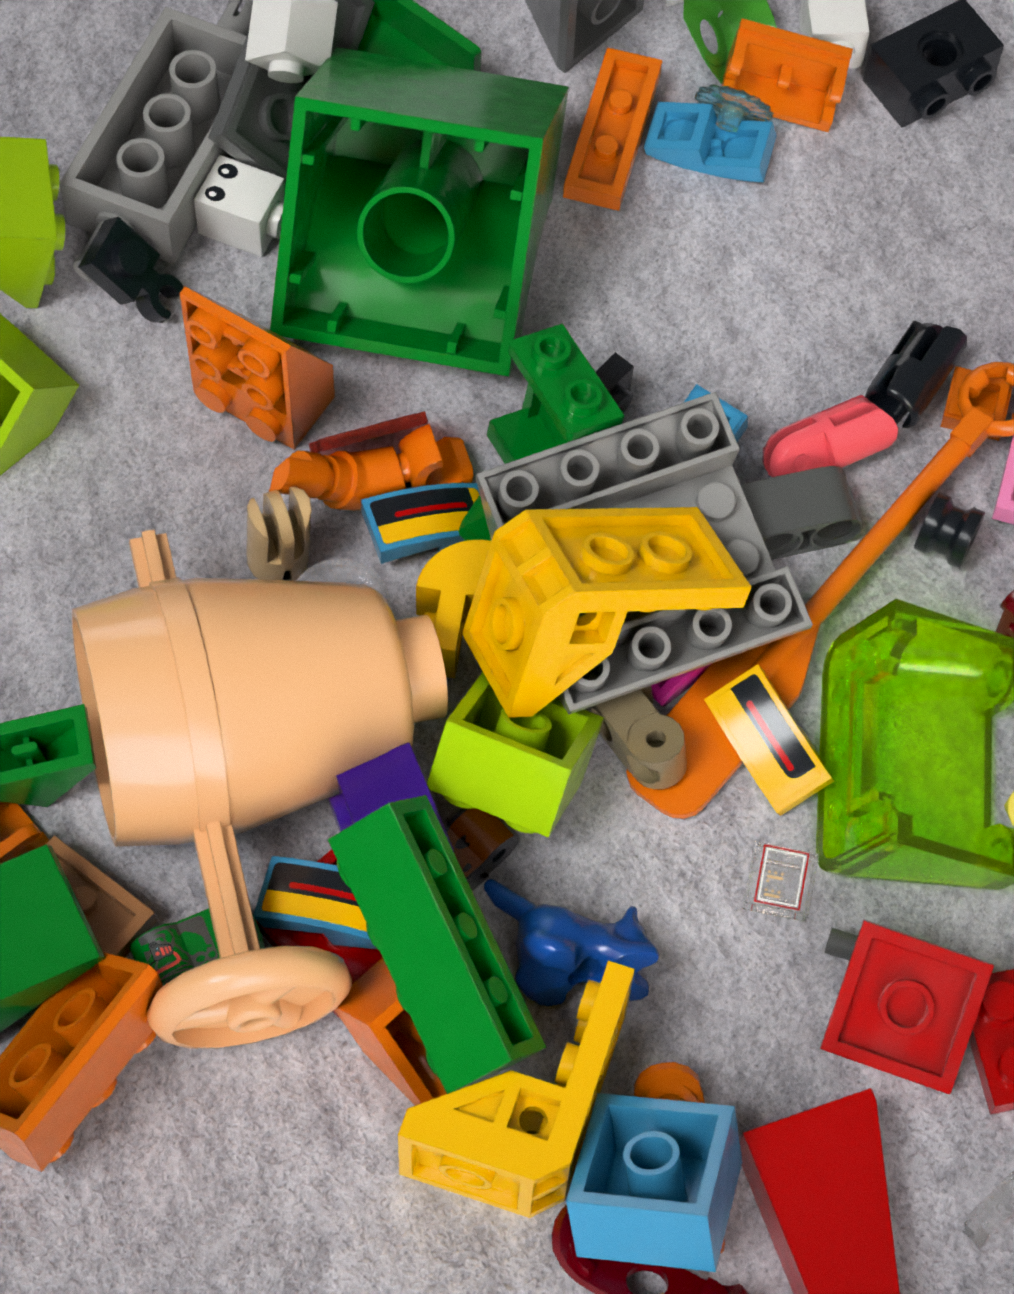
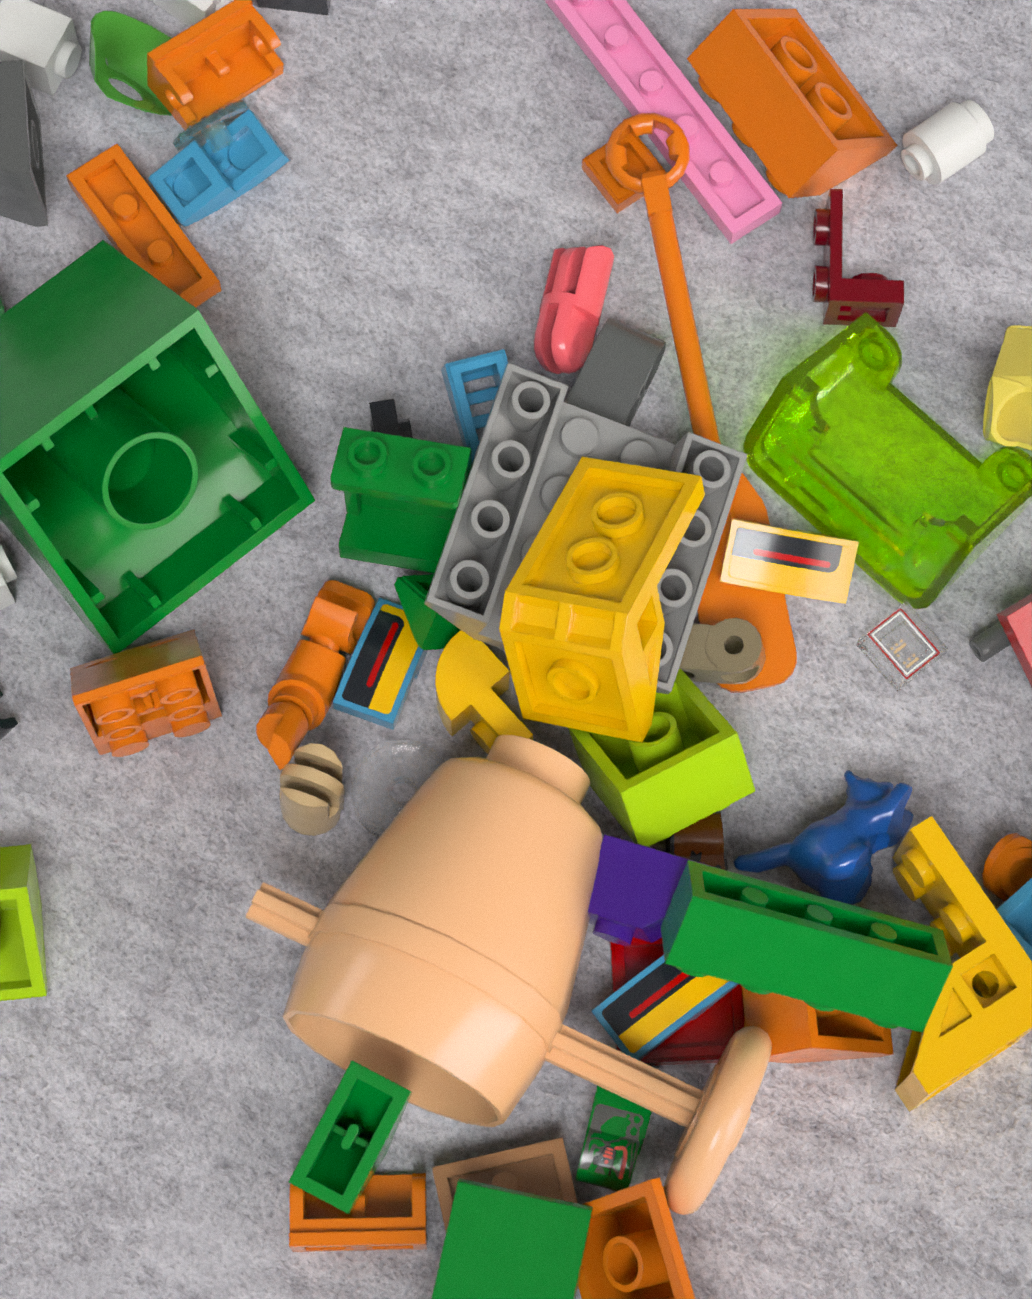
camera: 50 degrees left, 10 degrees up
(368, 433) = (276, 650): clear red piece -> none
(916, 370) = (565, 192): black arm -> none
(949, 530) = (722, 284): black wheel -> none

